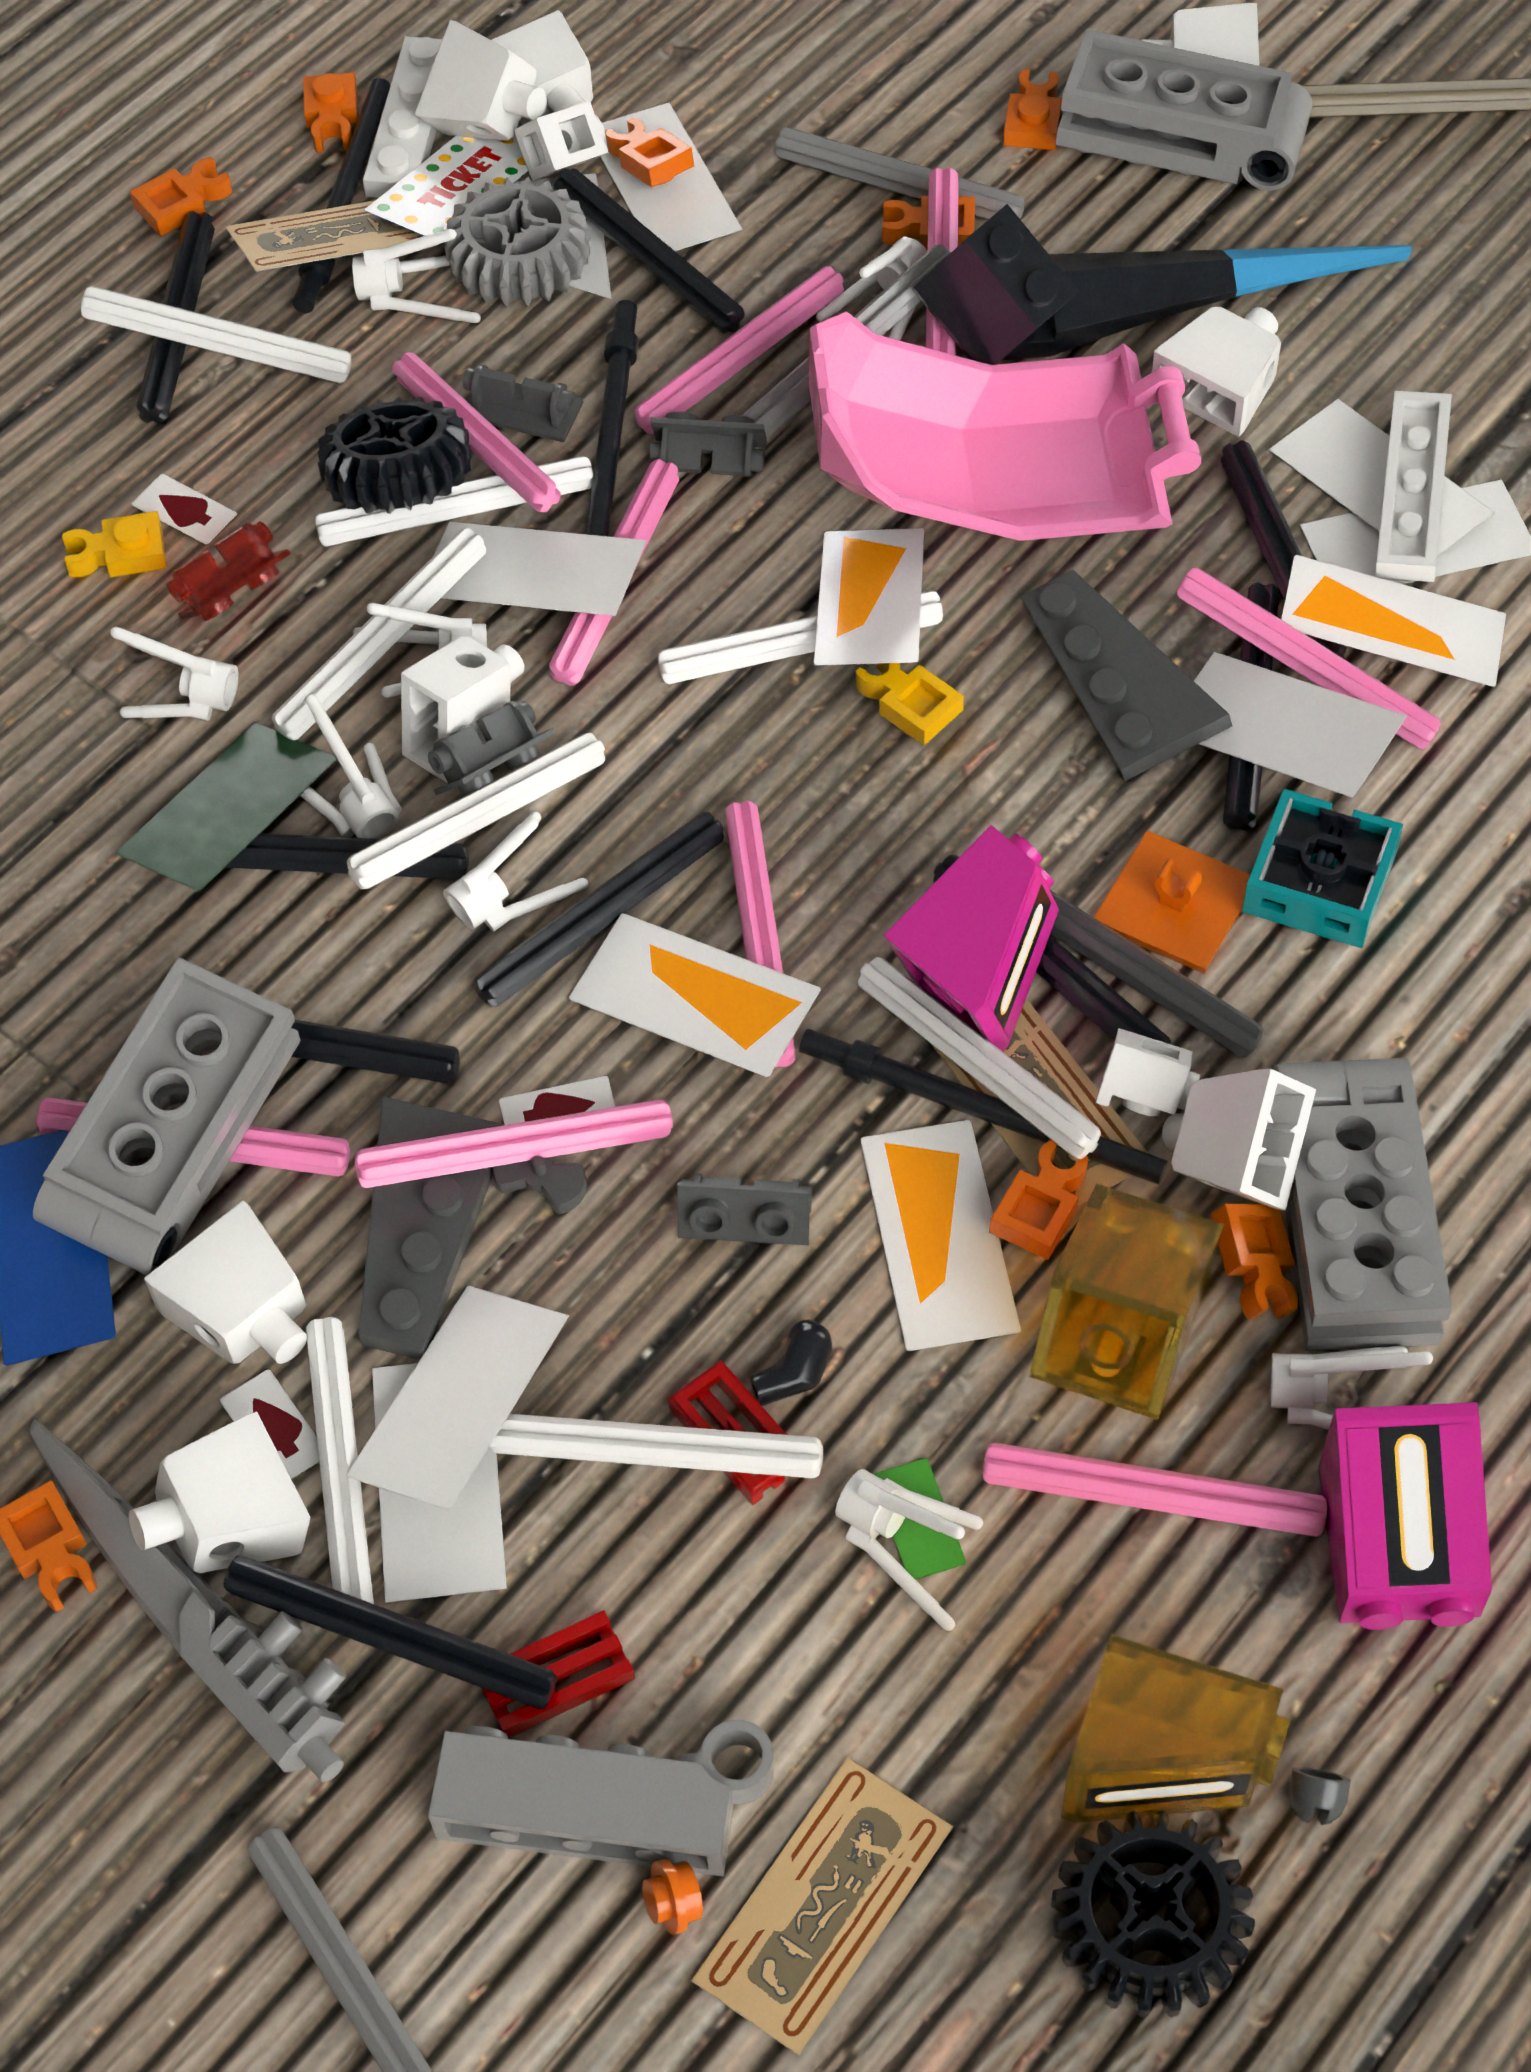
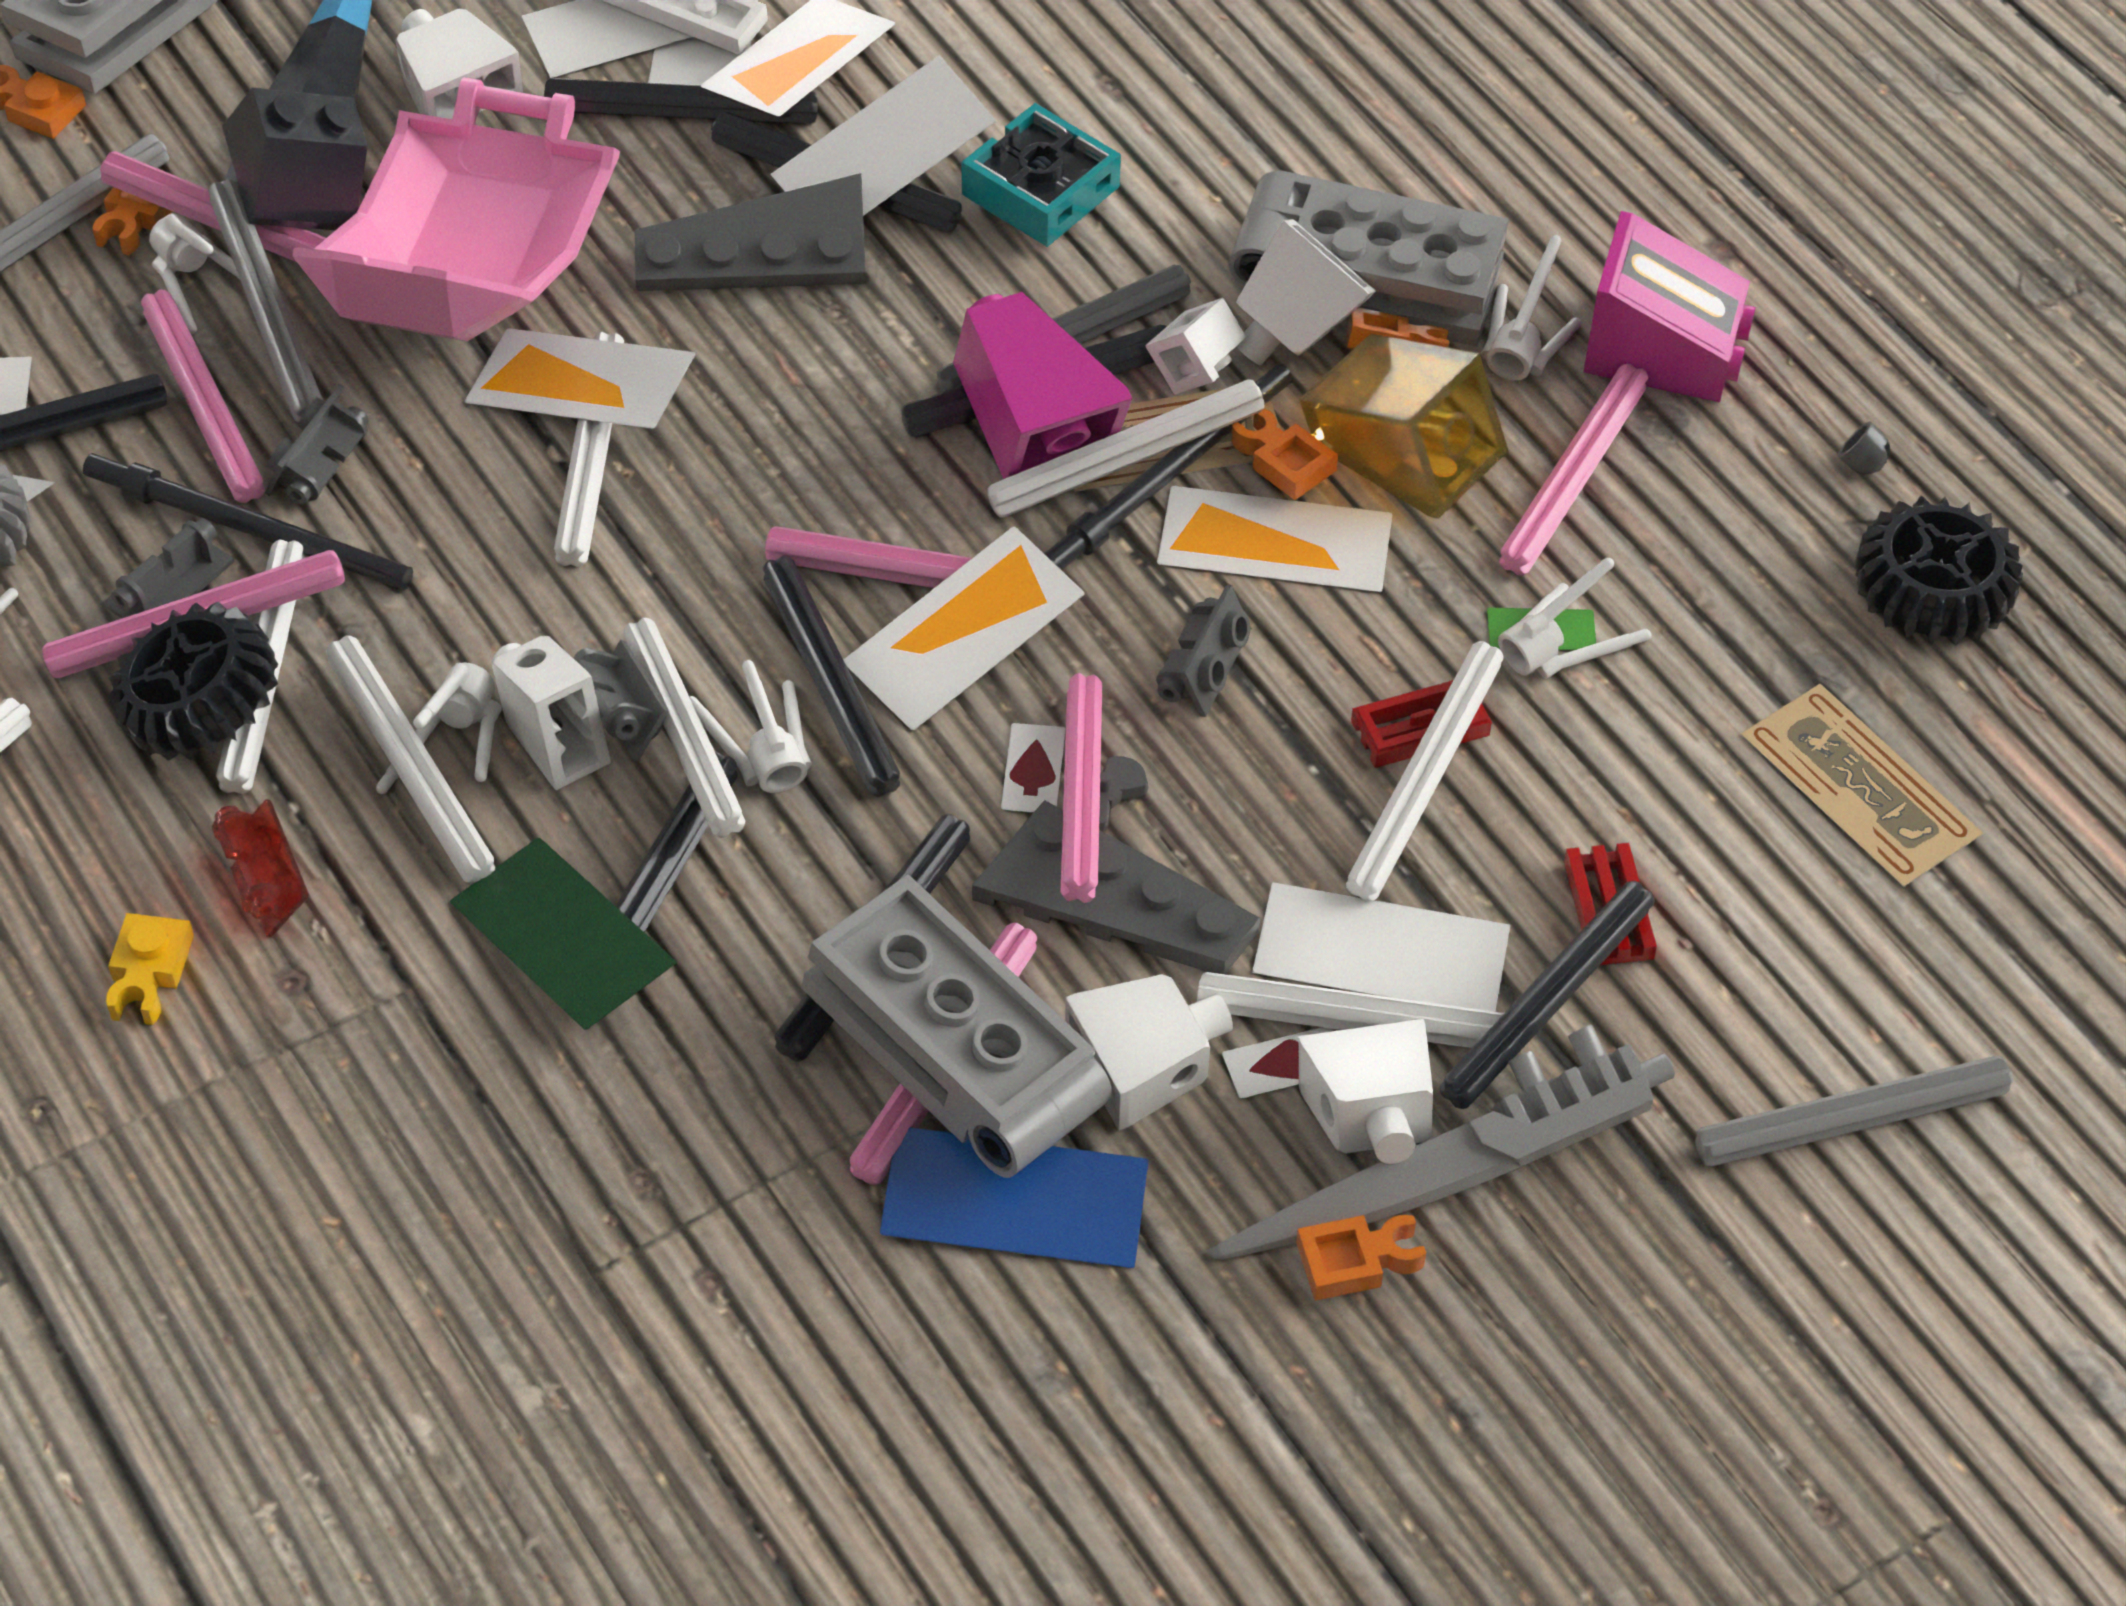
camera: 75 degrees left, 5 degrees down
(184, 509) = (105, 908): white sticker -> none
(203, 680) = (386, 920): white plant -> none
(365, 806) = (620, 819): white plant -> none
(457, 1397) = (1322, 900): white sticker -> none
(547, 569) = (395, 615): white sticker -> none
(594, 1801) = (1744, 891): light grey hinge -> none
(637, 523) = (429, 561): bright pink axle -> none
(672, 1895) = (1840, 865): orange plate -> none
(801, 1366) = (1383, 661): black arm -> none
(912, 701) = (714, 384): yellow plate -> none
(1170, 1737) = (1807, 505): clear yellow slope -> none
(1175, 901) = (1011, 267): orange piece -> none
(1302, 653) = (799, 117): bright pink axle -> none

